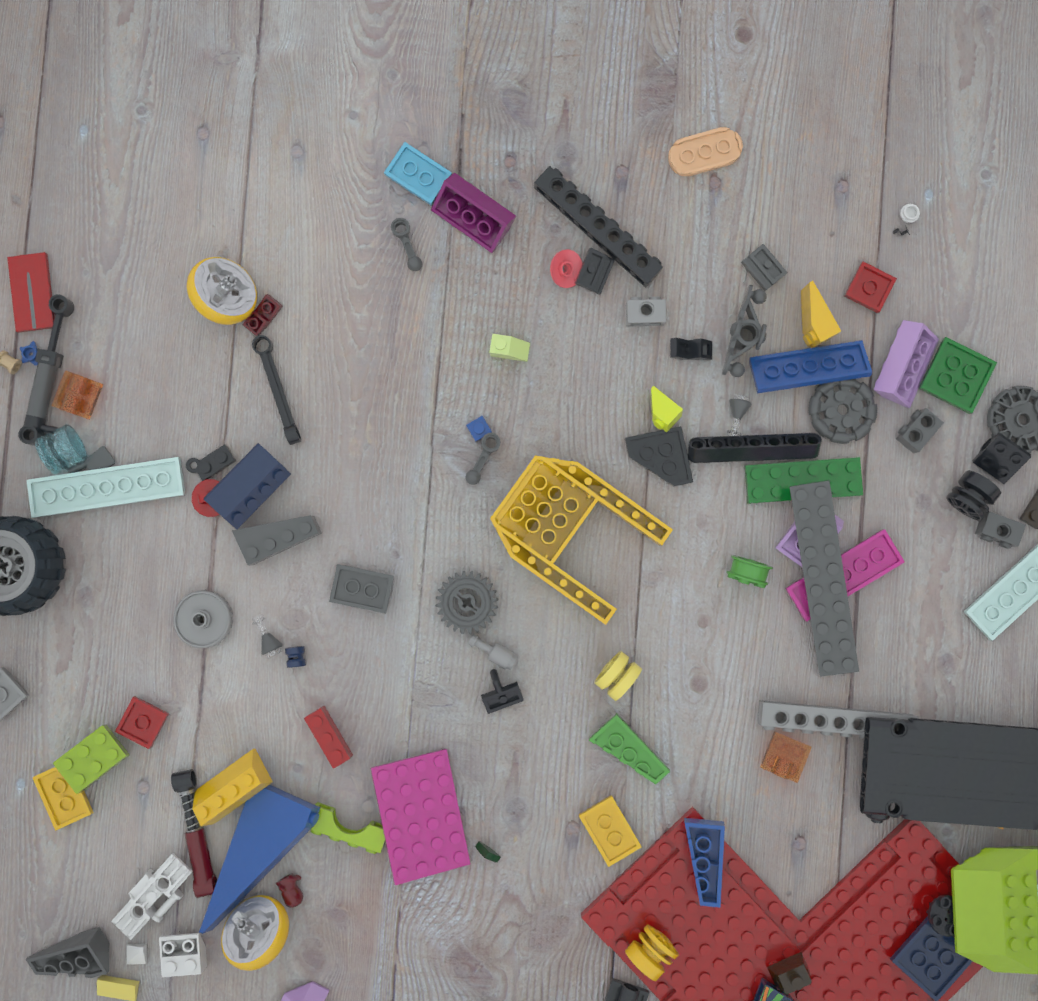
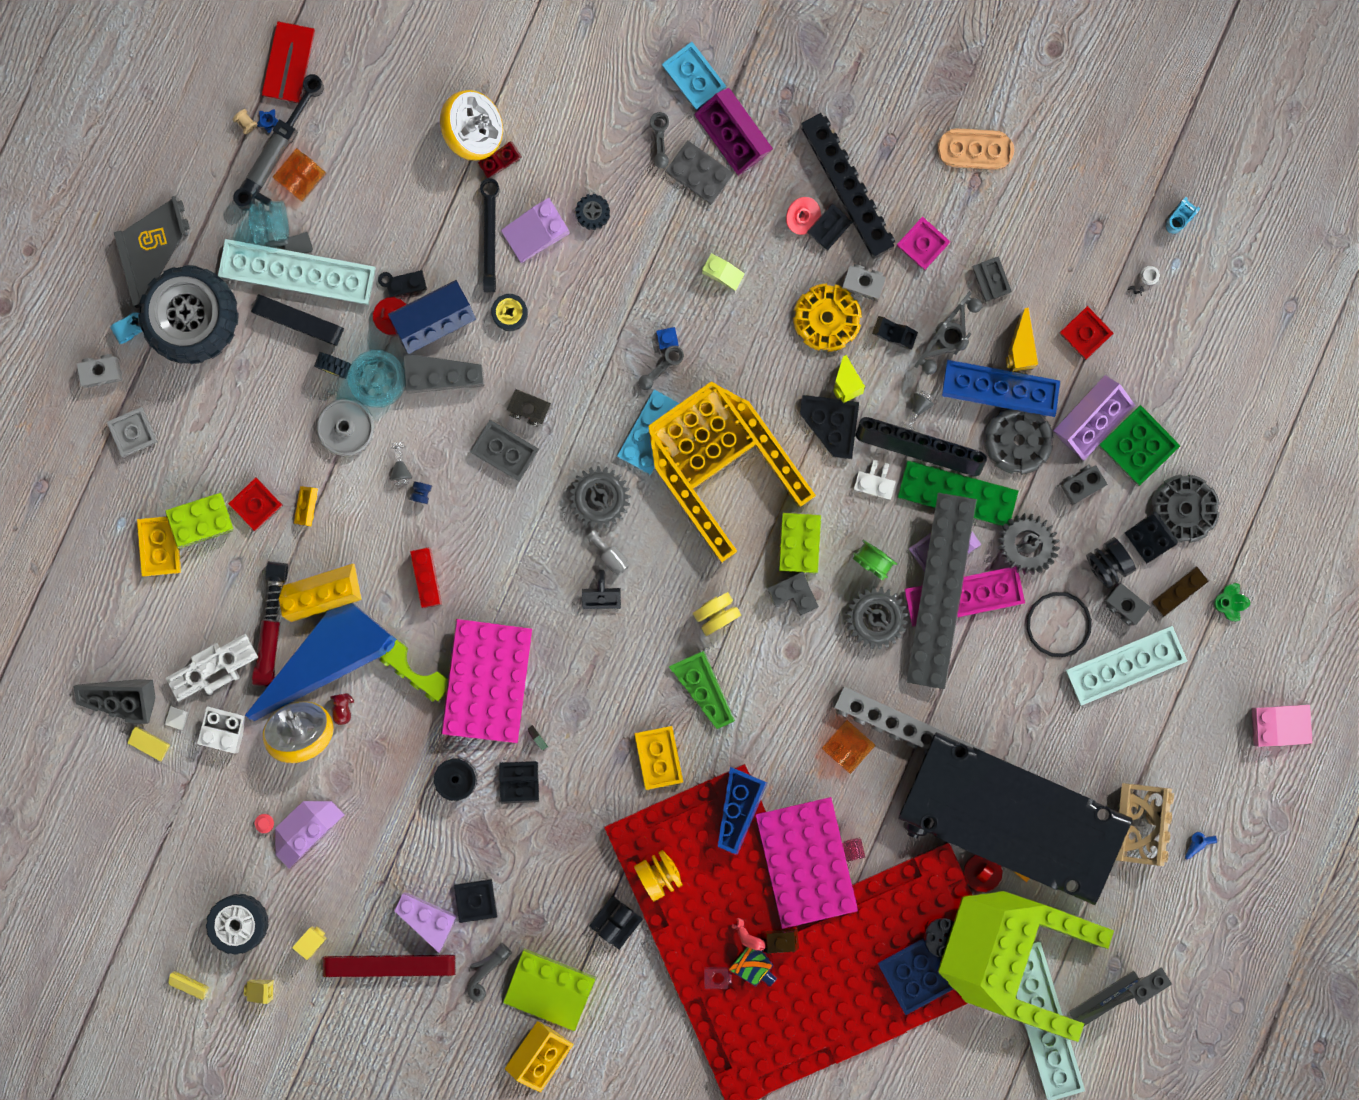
camera: 20 degrees right, 0 degrees up
(122, 533) = (297, 320): none -> black beam
(168, 565) = (332, 365): none -> black wheel
(190, 708) = (305, 506): none -> yellow plate
(204, 545) = (380, 398): none -> clear light blue wheel
(319, 369) = (535, 230): none -> lavender slope
(330, 452) = (505, 321): none -> wheel
(360, 534) = (520, 399): none -> clear smoke brick
(365, 326) = (592, 204): none -> black wheel
(412, 925) = (467, 779): none -> black wheel
(454, 262) = (699, 172): none -> flat silver plate
(485, 900) = (519, 782): none -> black slope
(486, 539) = (637, 447): none -> medium azure plate
(617, 367) = (823, 328): none -> yellow plate
(672, 579) = (799, 543): none -> lime brick
(684, 624) = (795, 588): none -> dark grey brick
(688, 256) = (923, 243): none -> dark pink plate
(722, 499) = (873, 484): none -> white hinge
(752, 618) = (861, 606): none -> dark grey gear
(759, 985) = (746, 939): none -> coral arm
(788, 885) = (806, 862): none -> dark pink plate
(825, 854) = (853, 849): none -> clear pink brick
(902, 498) = (1039, 535): none -> dark grey gear
(921, 145) = (1183, 214): none -> medium azure piece
(955, 836) = (982, 874): none -> red tile
(971, 572) = (1029, 621): none -> black piece

